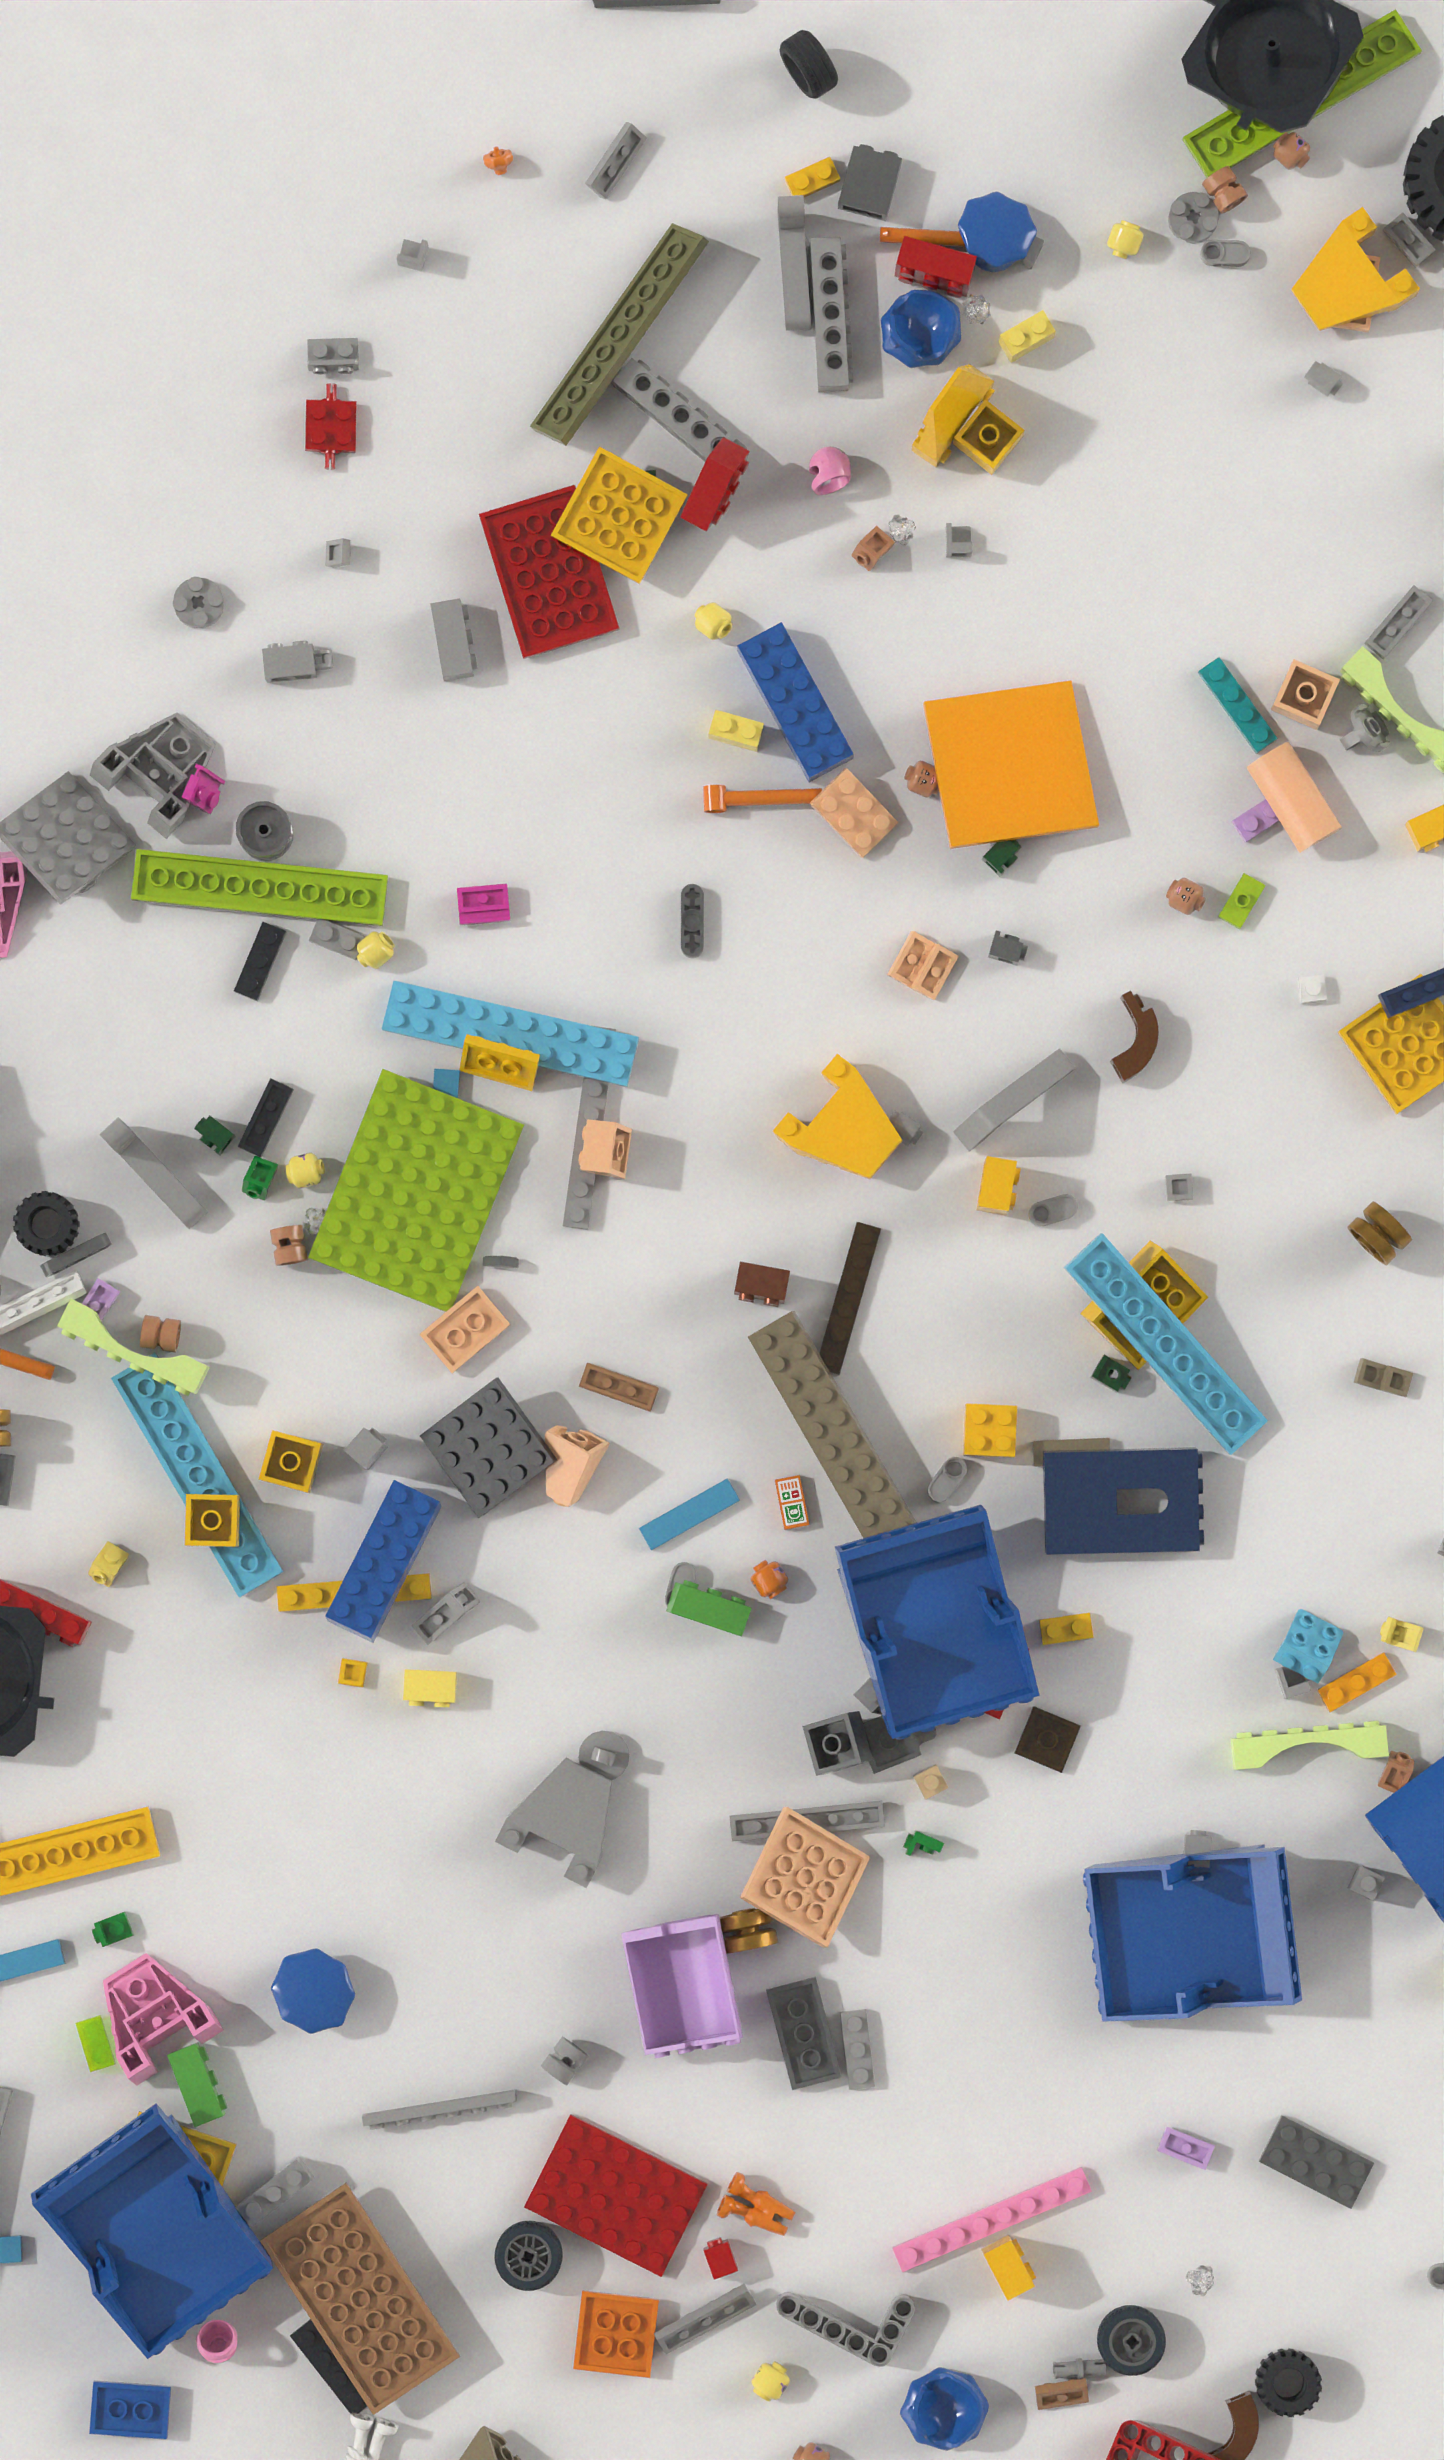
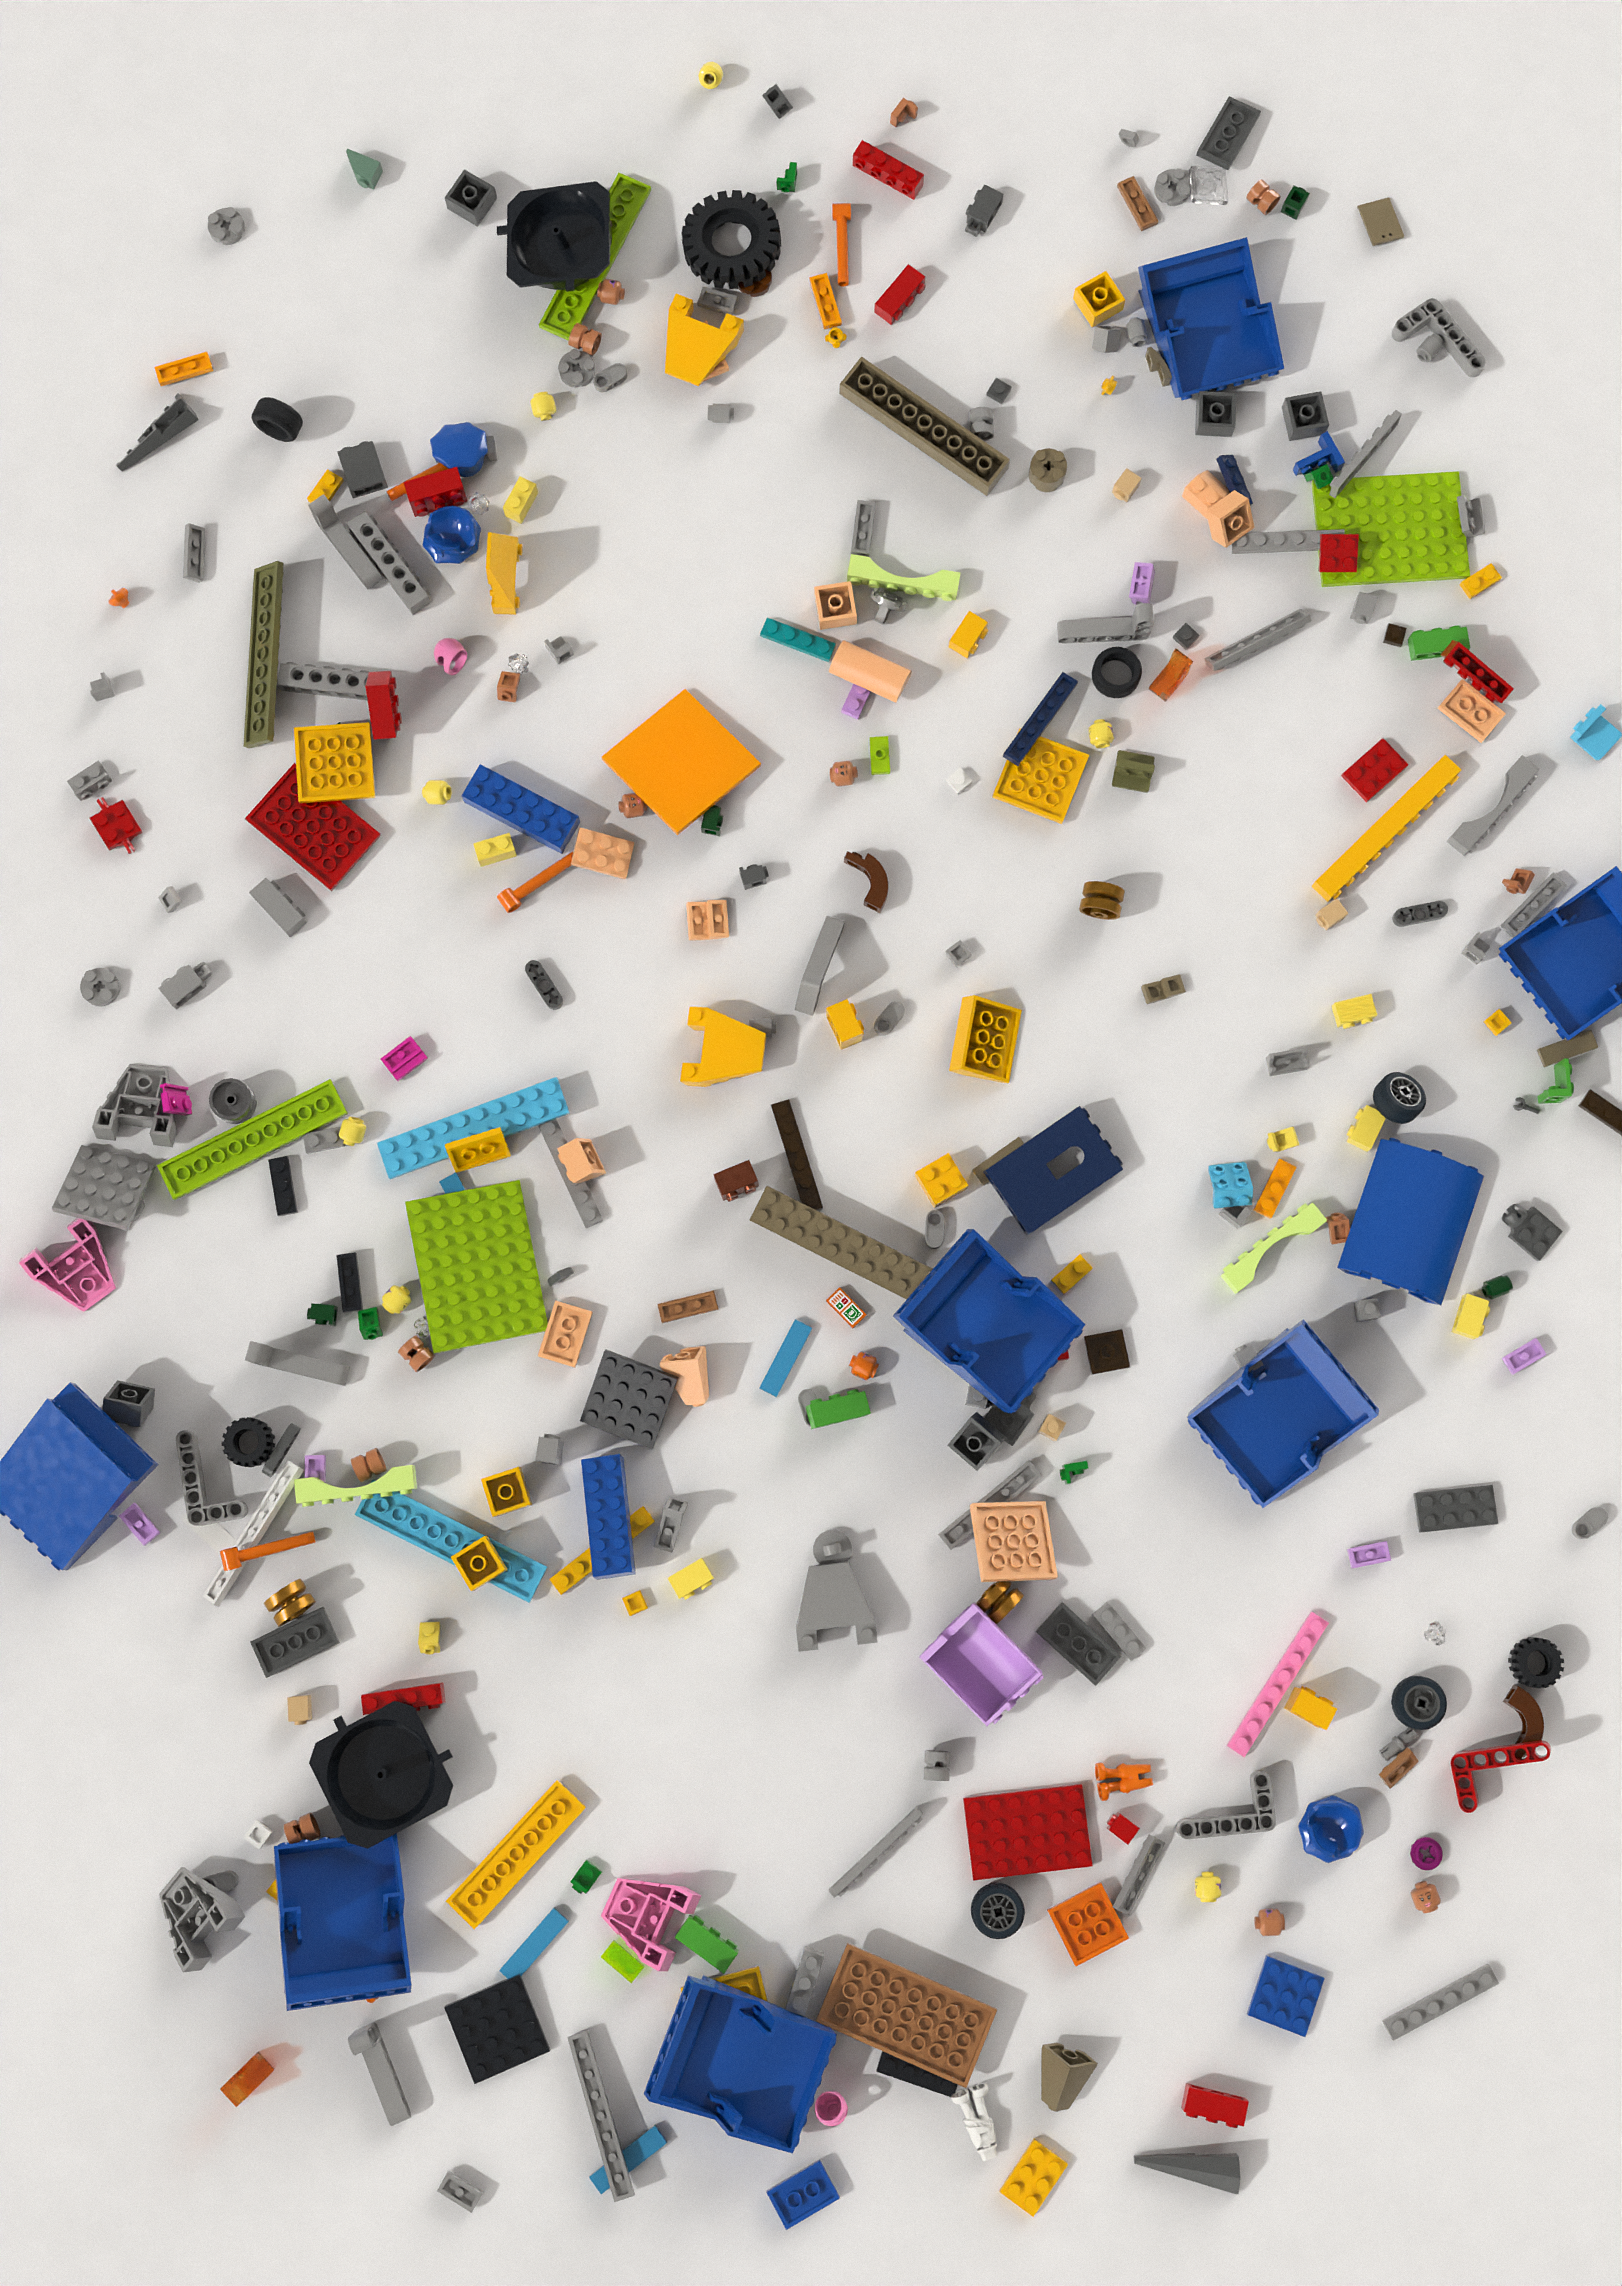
camera: 35 degrees left, 5 degrees down
(313, 1991) = (743, 1829): blue piece -> none
(988, 437) = (536, 573): yellow brick -> none
(1101, 1375) = (989, 1101): dark green brick -> none
(1165, 1344) = (1015, 1053): medium azure plate -> none

